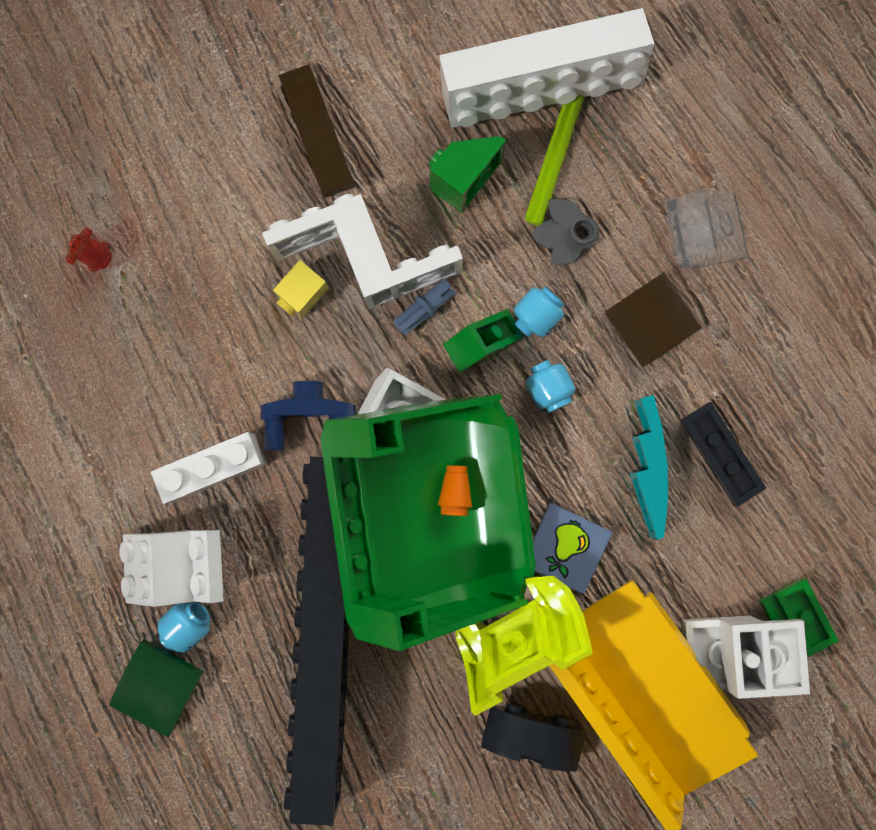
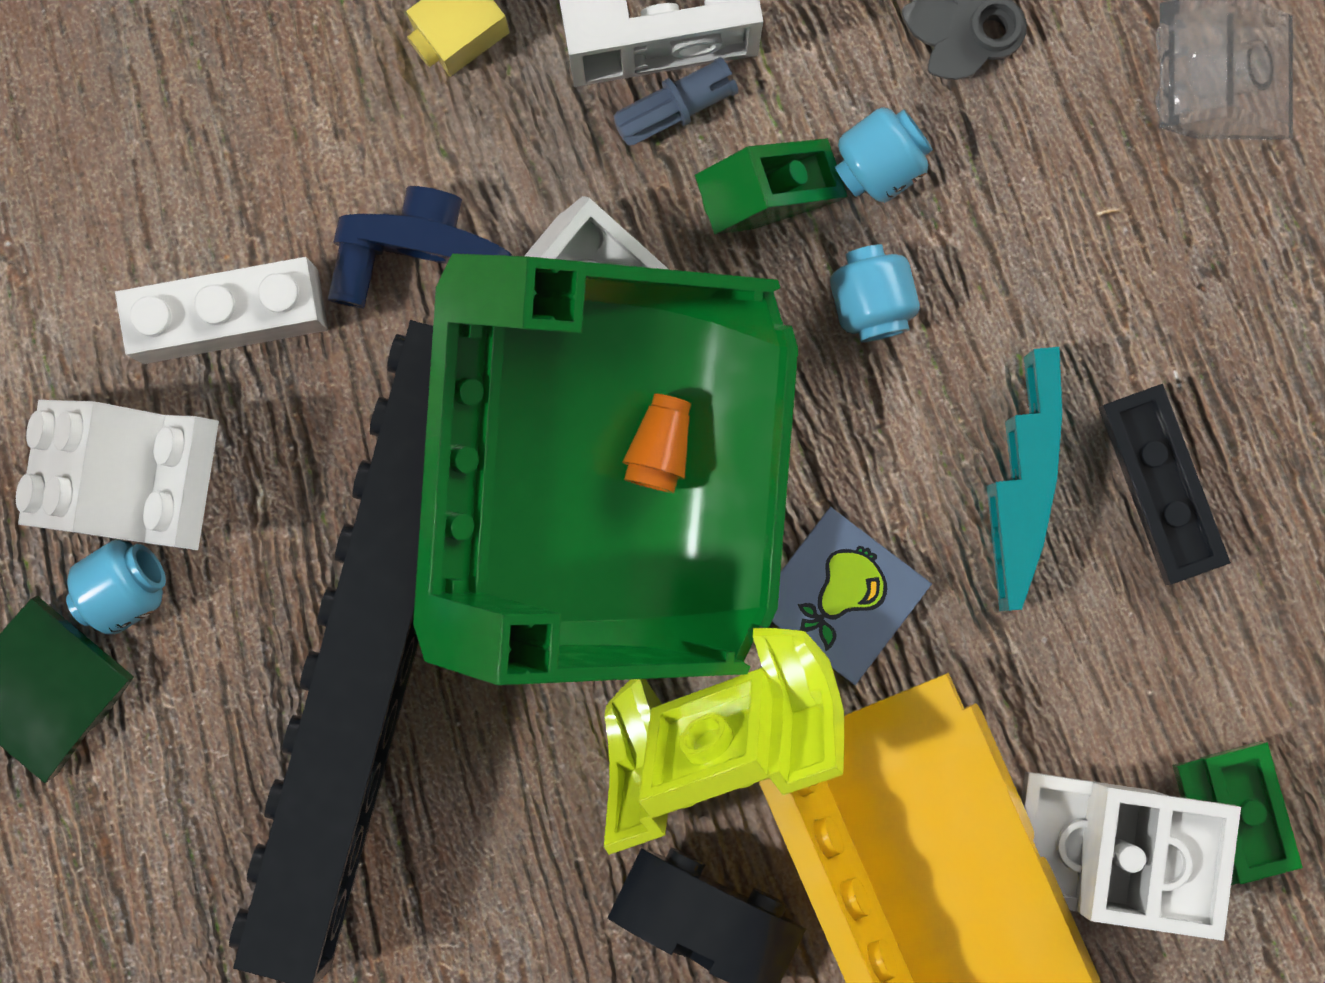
camera: 10 degrees right, 0 degrees up
(653, 319) = (1090, 213): dark brown slope -> none

